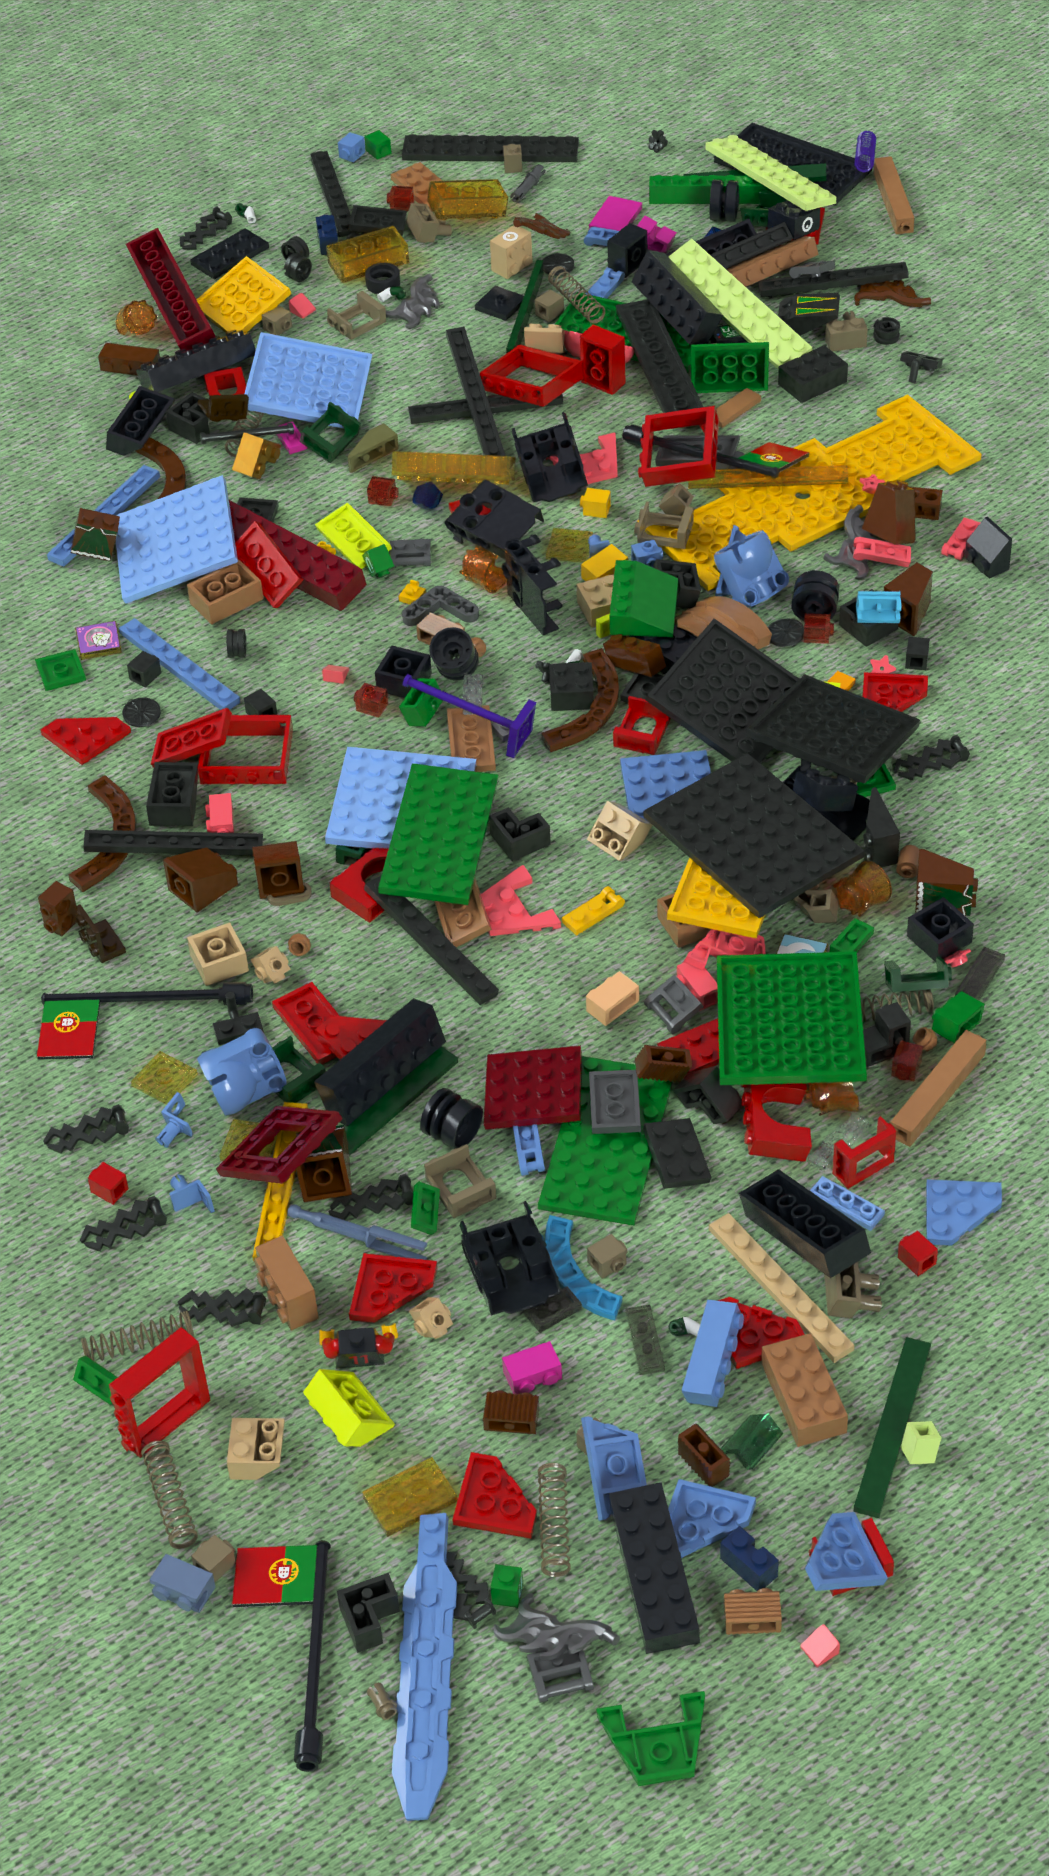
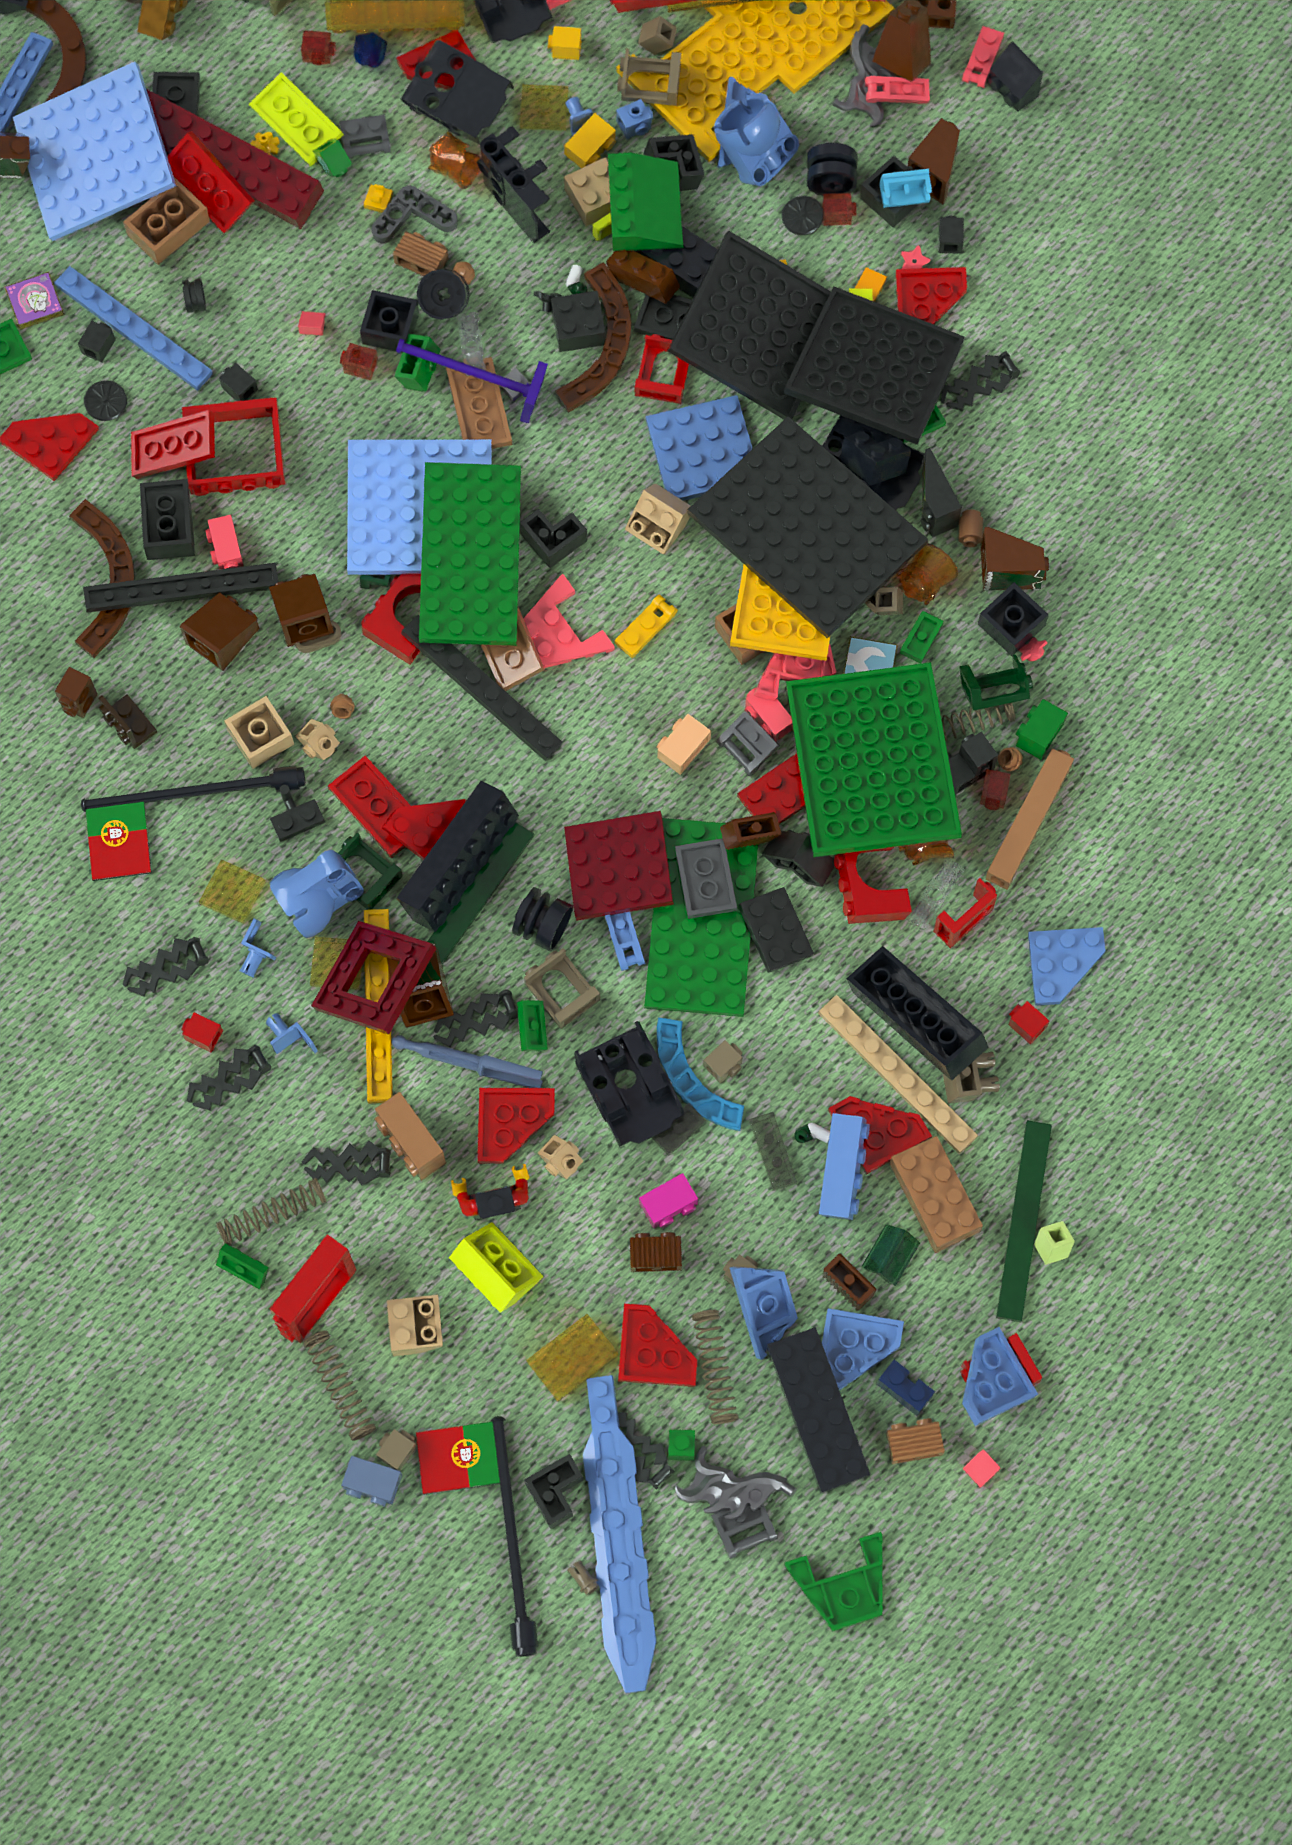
camera: 10 degrees left, 25 degrees up
(730, 614) = (735, 207): medium nougat slope -> none
(848, 1203) = (937, 960): light blue tile -> none
(981, 973) = (1058, 668): clear smoke tile -> none

